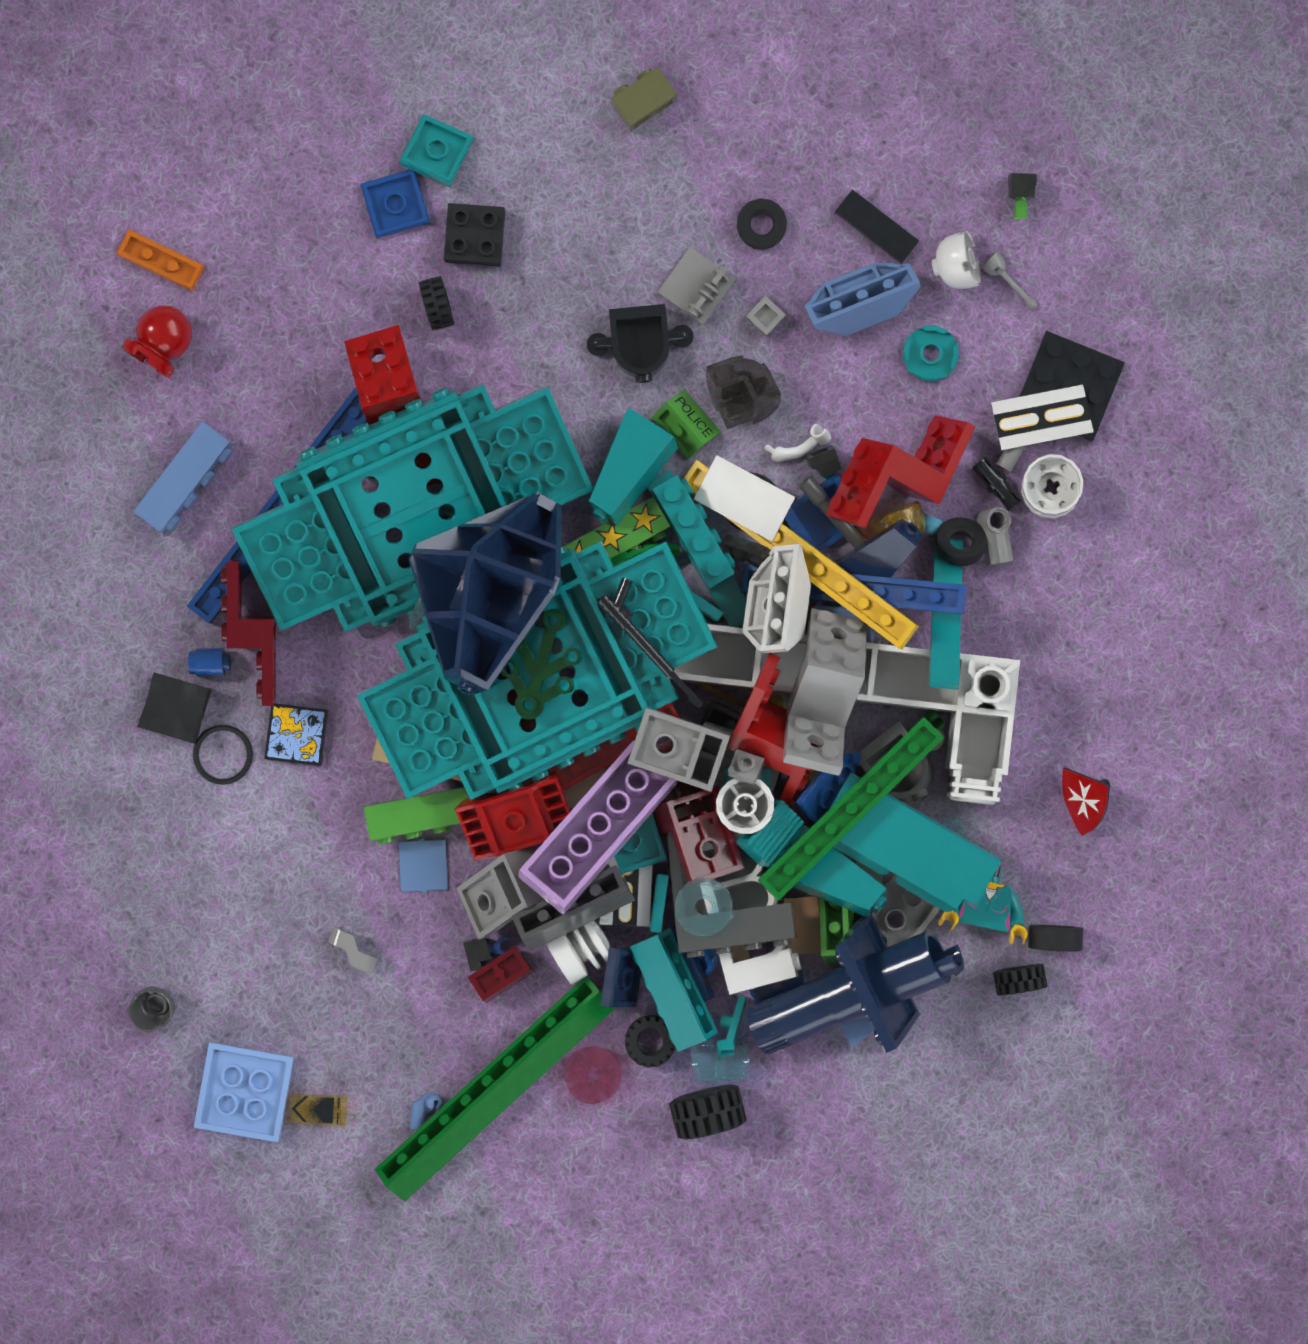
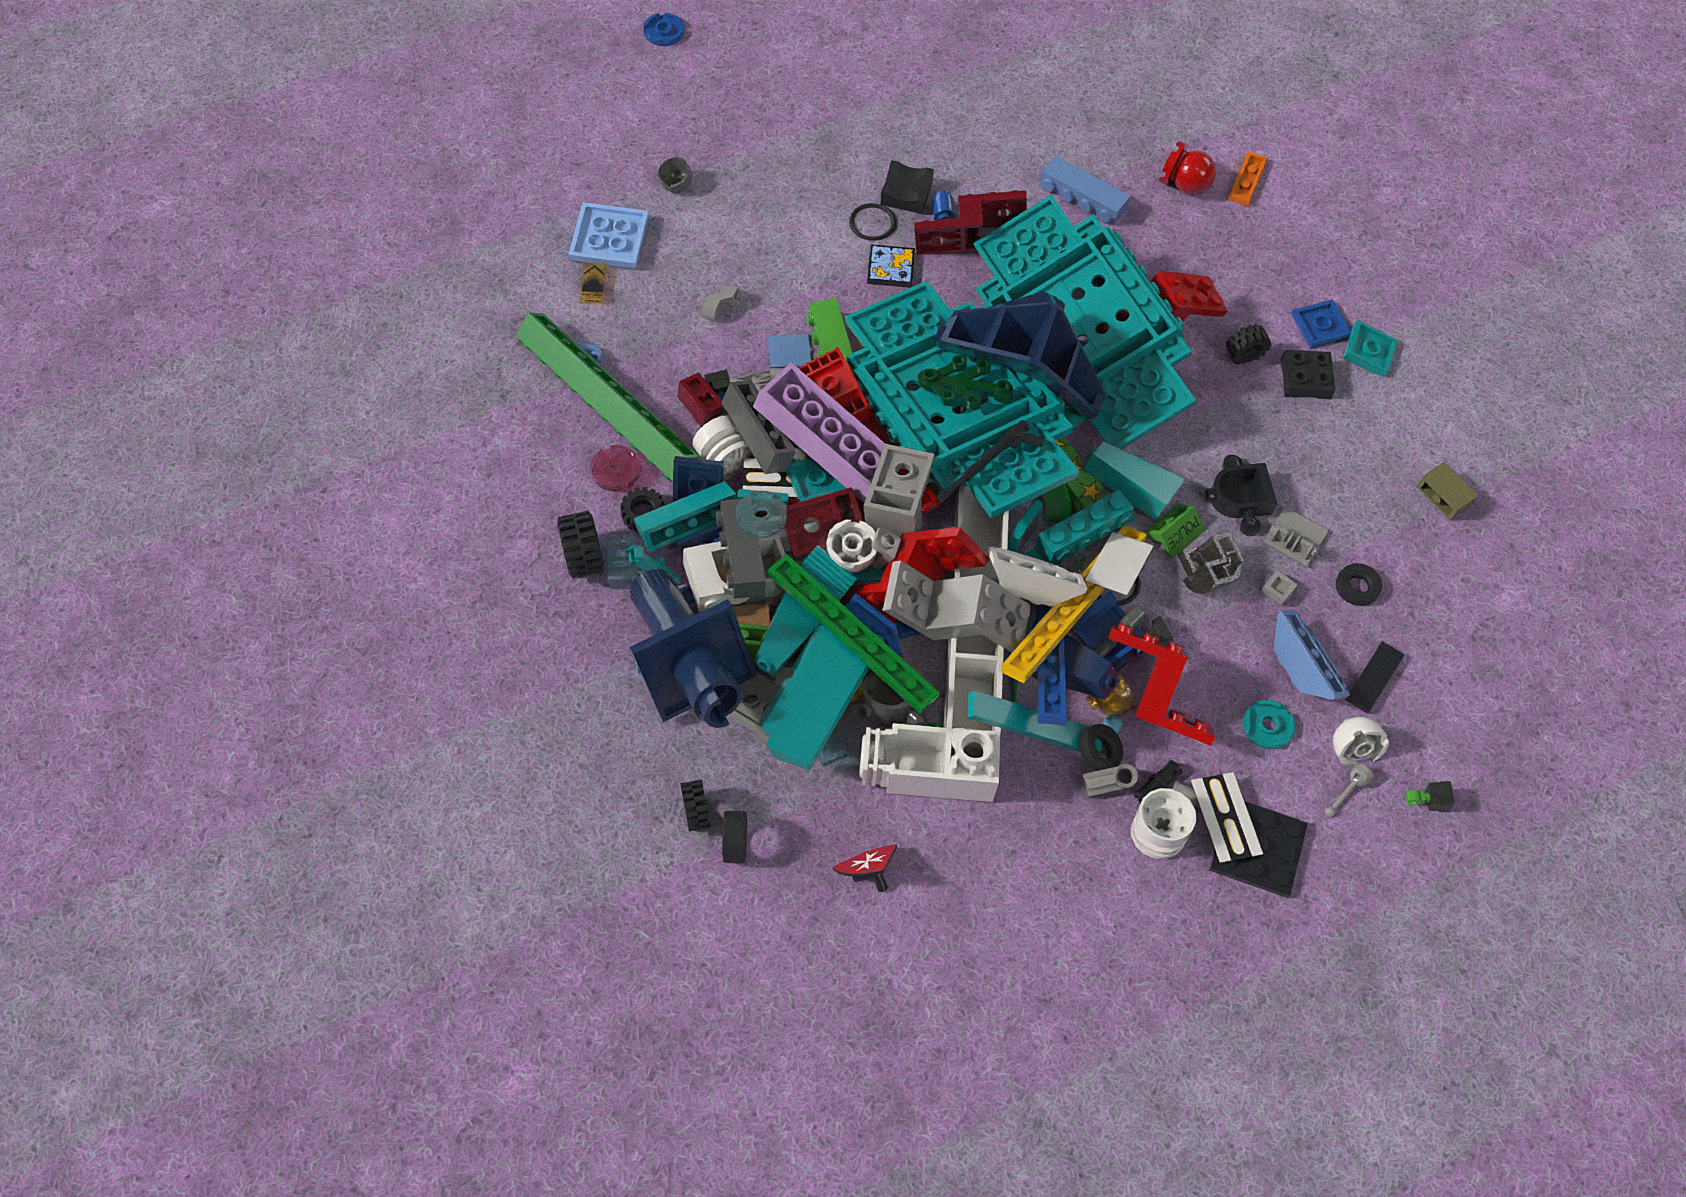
camera: 80 degrees right, 25 degrees down
(785, 454) = (1179, 632): white piece -> none
(996, 910) = (764, 777): teal torso -> none

